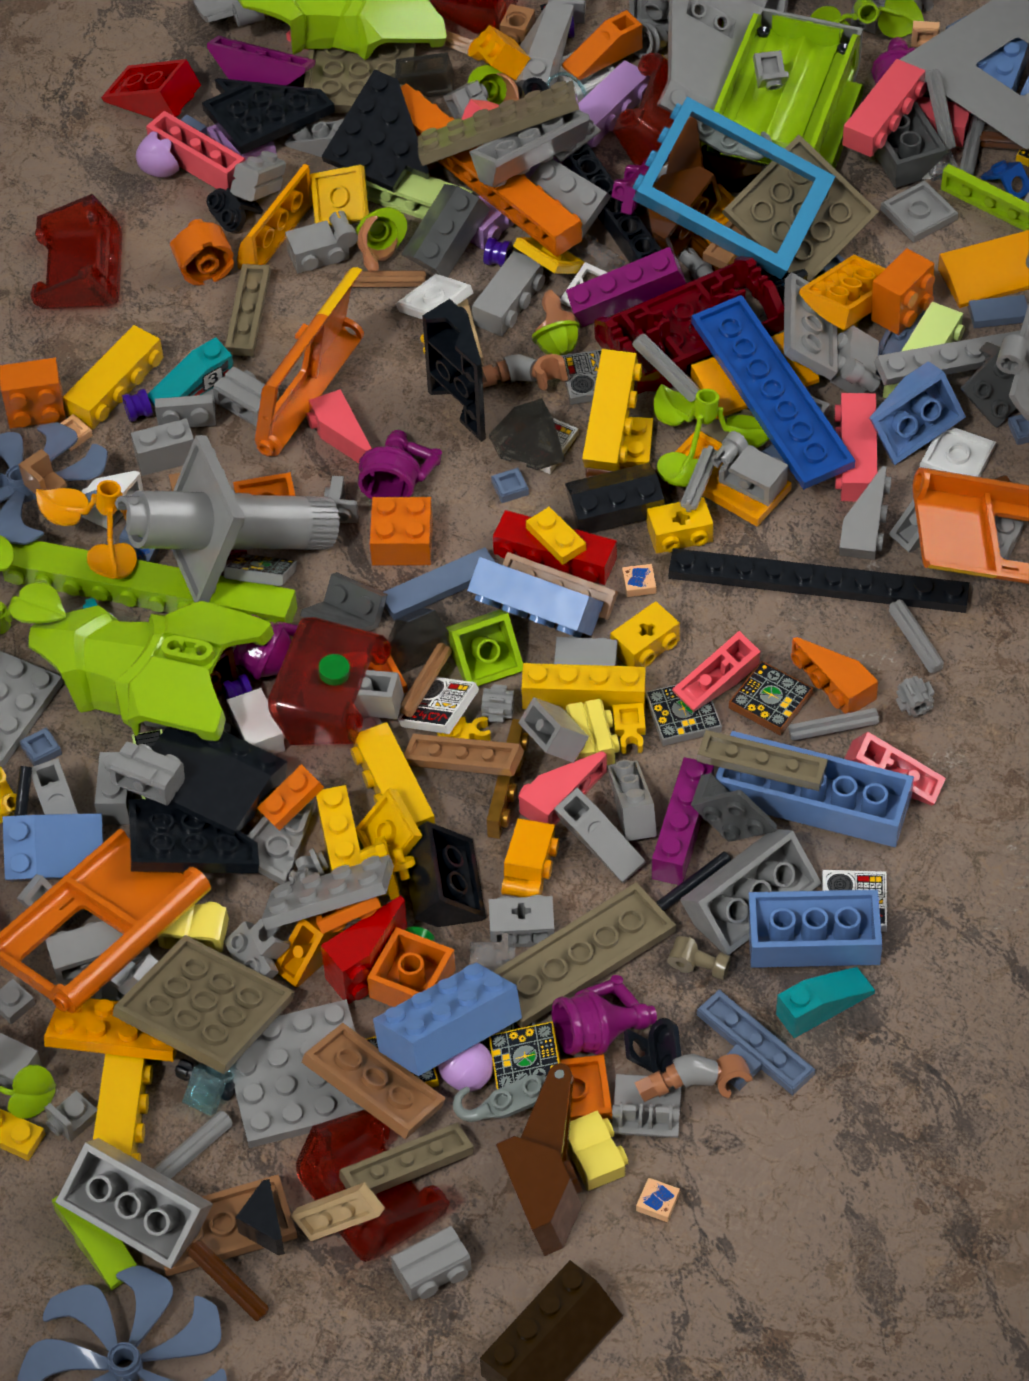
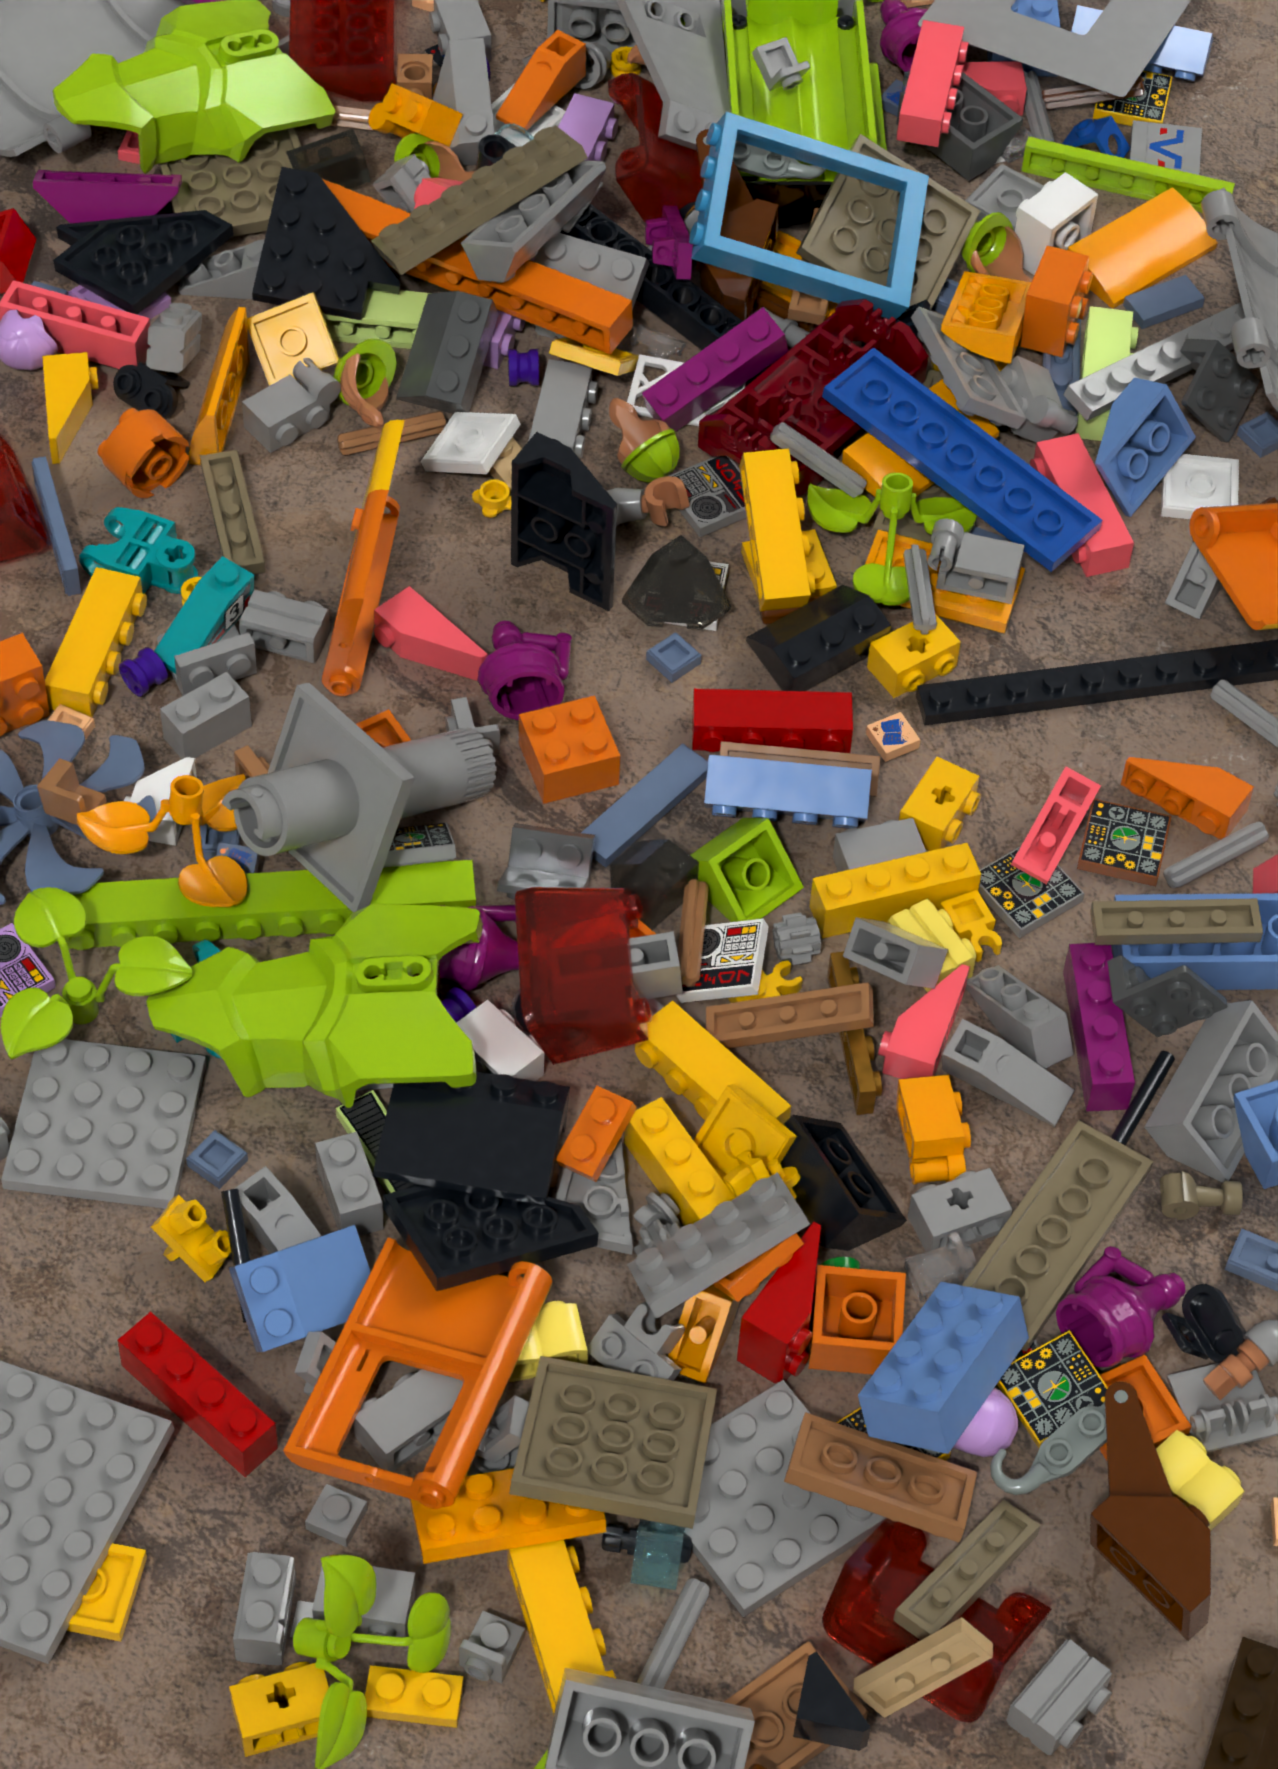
camera: 25 degrees left, 0 degrees up
(124, 289) = (56, 526): none -> sand blue tile
(147, 772) = (402, 1152): light grey brick -> none
(170, 204) = (68, 398): none -> yellow slope
(176, 323) = (143, 550): none -> teal piece
(334, 669) = (594, 948): green tile -> none
(556, 535) = (776, 704): yellow plate -> none
(861, 525) = (1140, 600): light grey slope -> none
(880, 240) = (994, 249): none -> piece
(935, 229) = (1055, 218): none -> white brick
(940, 108) = (992, 66): light grey axle -> none

